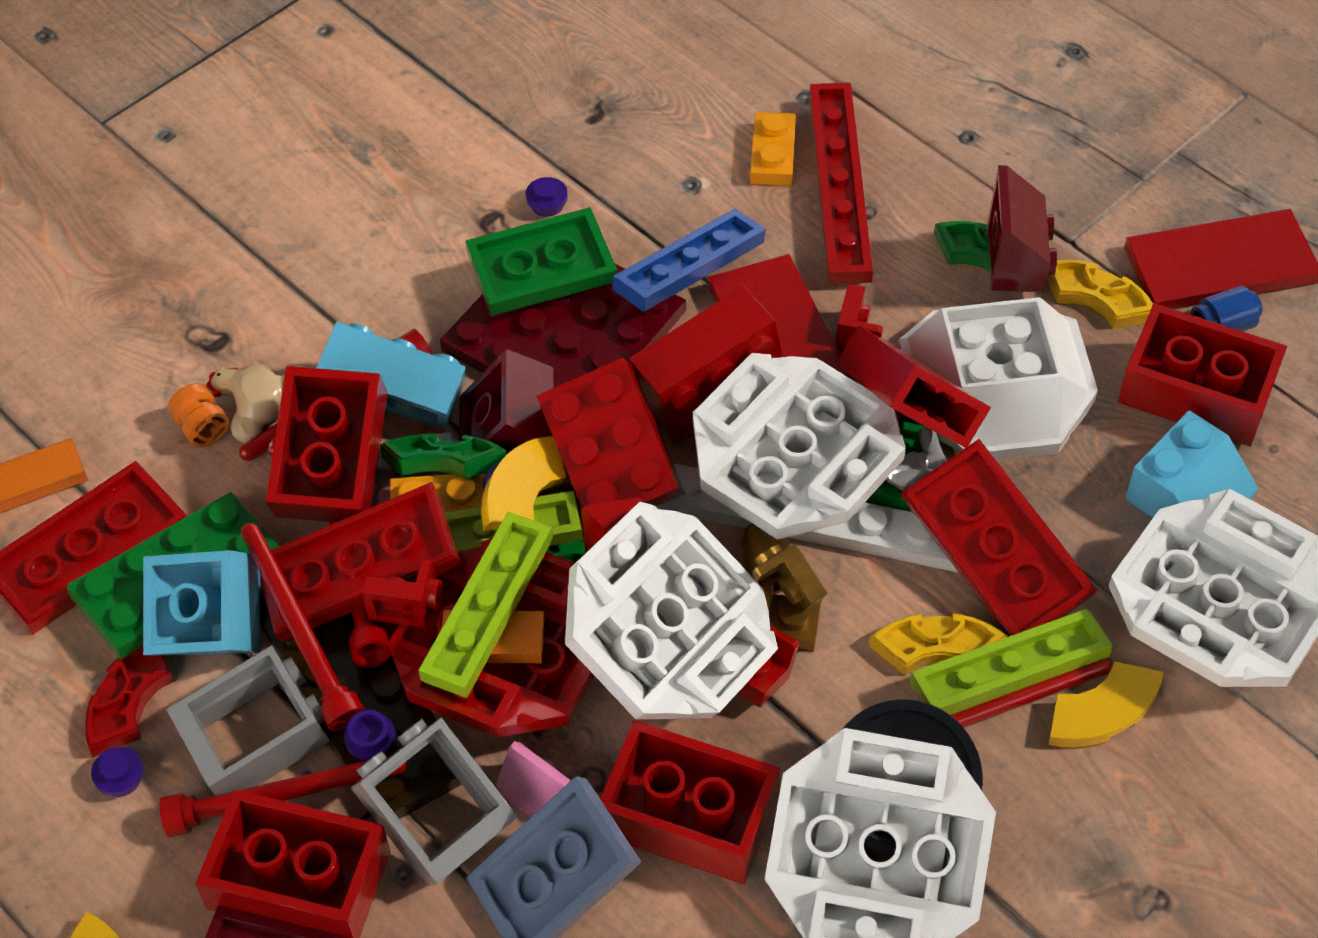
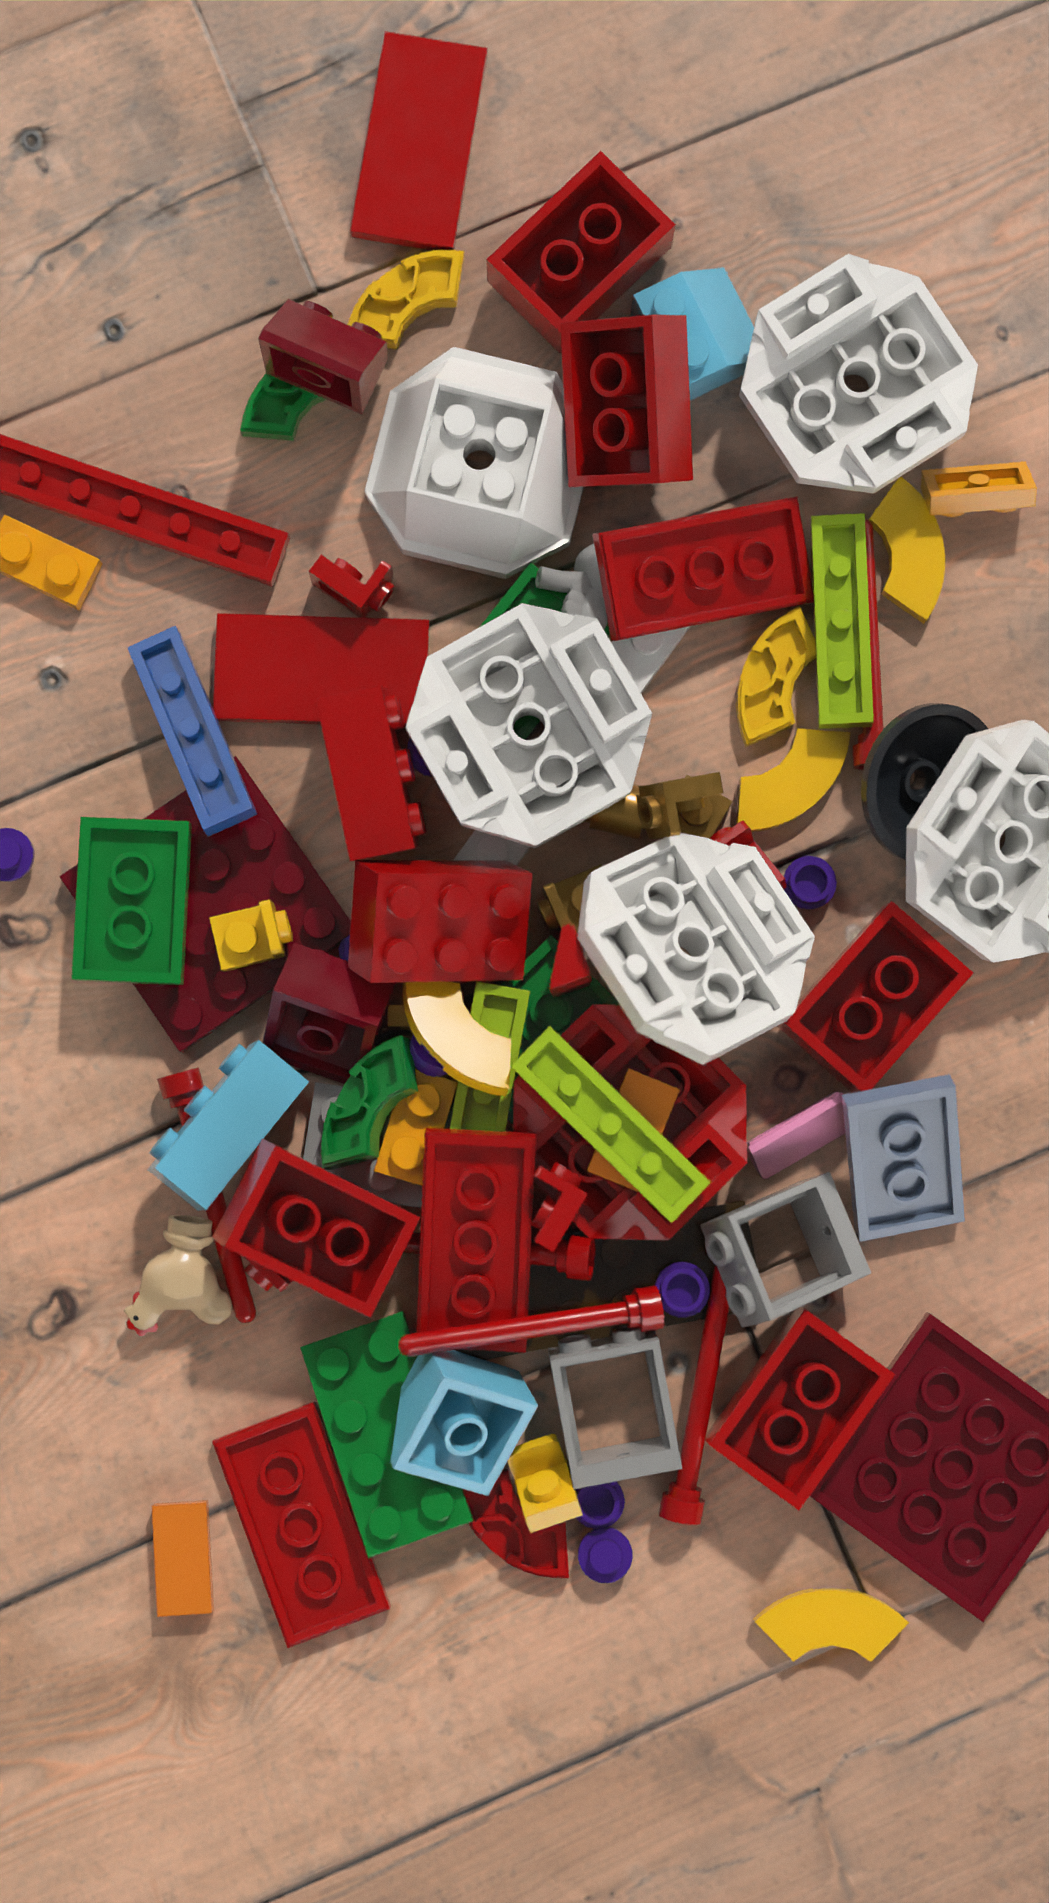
camera: 75 degrees left, 30 degrees up
(155, 694) = (544, 1483): none -> yellow bracket
(162, 750) = (600, 1504): none -> dark purple plate
(201, 422) = (180, 1355): orange wheel -> none
(548, 340) = (251, 935): none -> yellow bracket
(772, 727) = (810, 882): none -> dark purple plate
(845, 682) = (795, 783): none -> yellow tile
(912, 387) = (496, 575): red slope -> none
(1100, 429) = (627, 400): none -> red brick
(1180, 723) = (978, 488): none -> light orange plate
(1232, 308) = (501, 180): blue brick -> none

